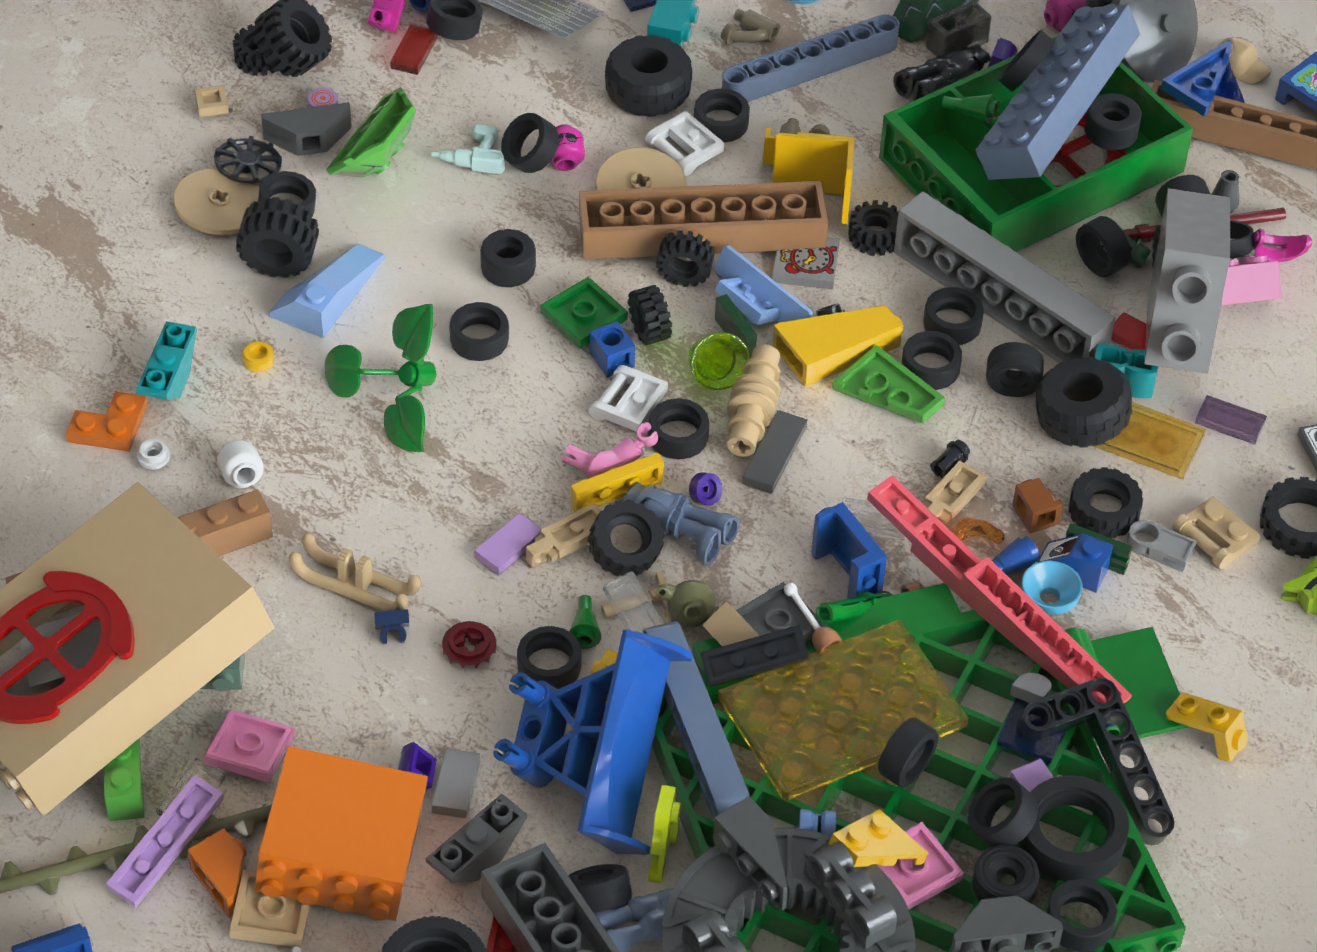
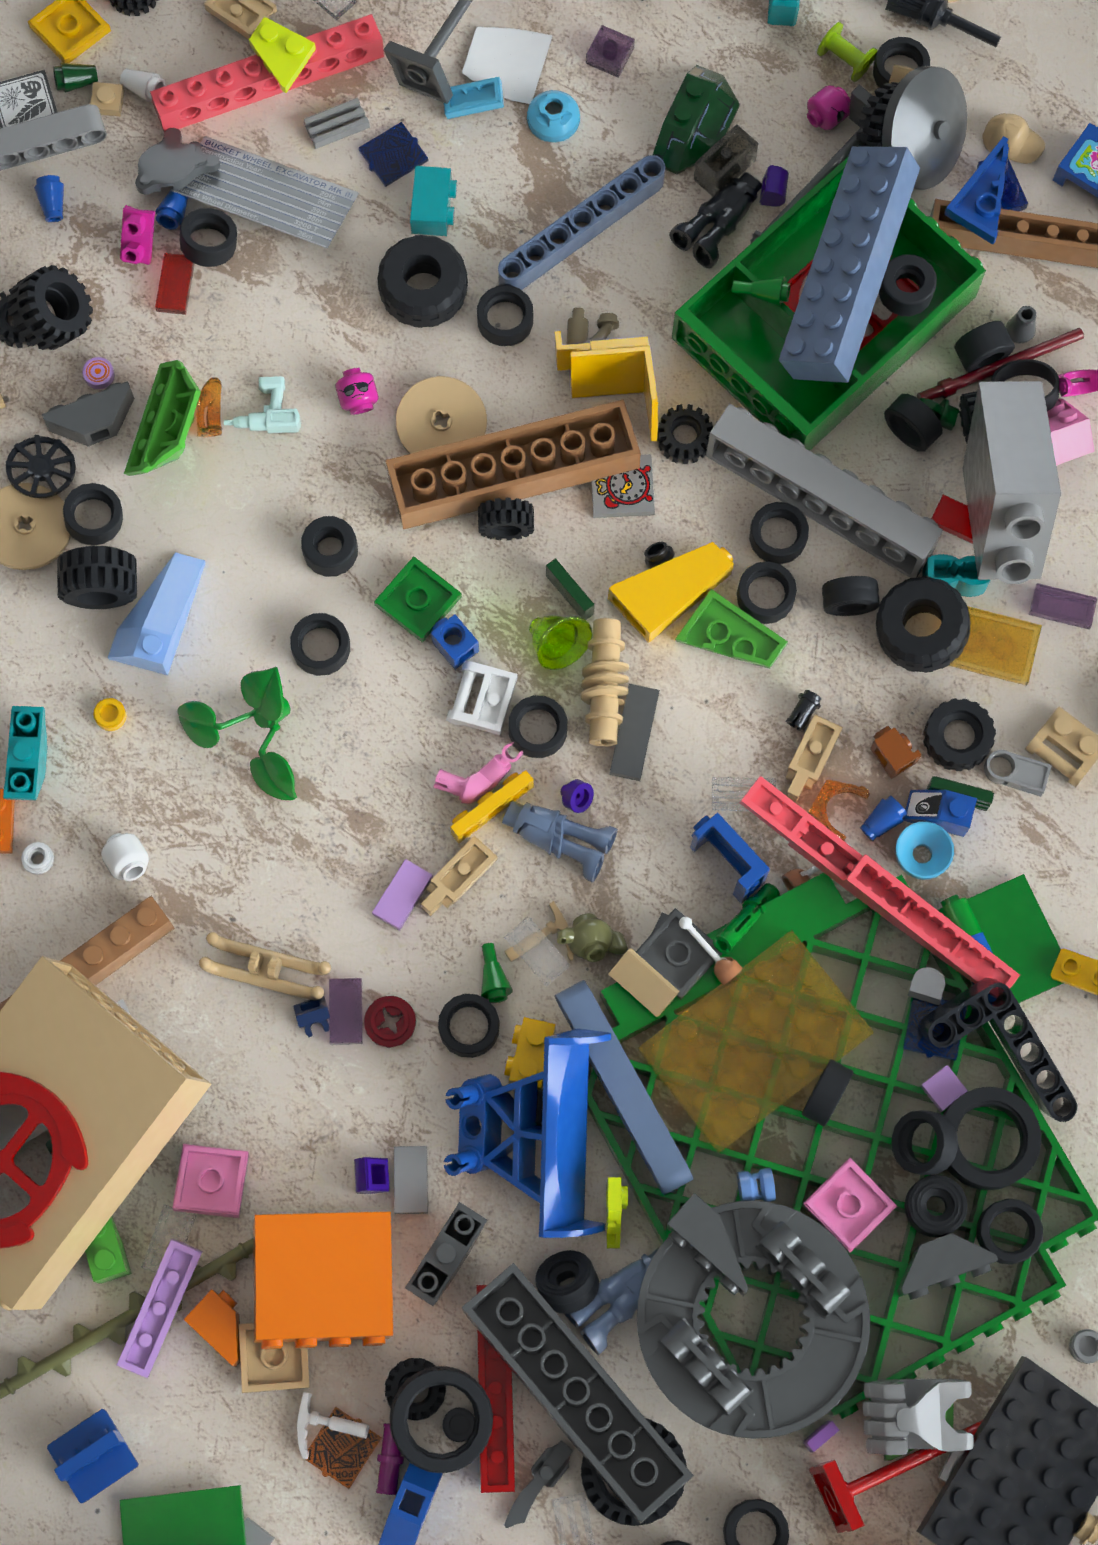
camera: 10 degrees left, 25 degrees up
(421, 138) = (210, 398): none -> clear orange helmet
(426, 630) = (345, 1011): none -> clear purple tile
(543, 150) = (303, 398): black tyre -> none
(633, 515) = (538, 869): black tyre -> none
(649, 315) = (484, 598): black tyre -> none
(689, 135) = (481, 351): white plate -> none
(754, 656) = (666, 1008): black tile -> none
(755, 292) = (582, 545): light blue bracket -> none
(757, 27) = (517, 183): dark tan plant -> none
(878, 841) = (815, 1199): yellow wing -> none
(1026, 60) = (821, 234): black tyre -> none

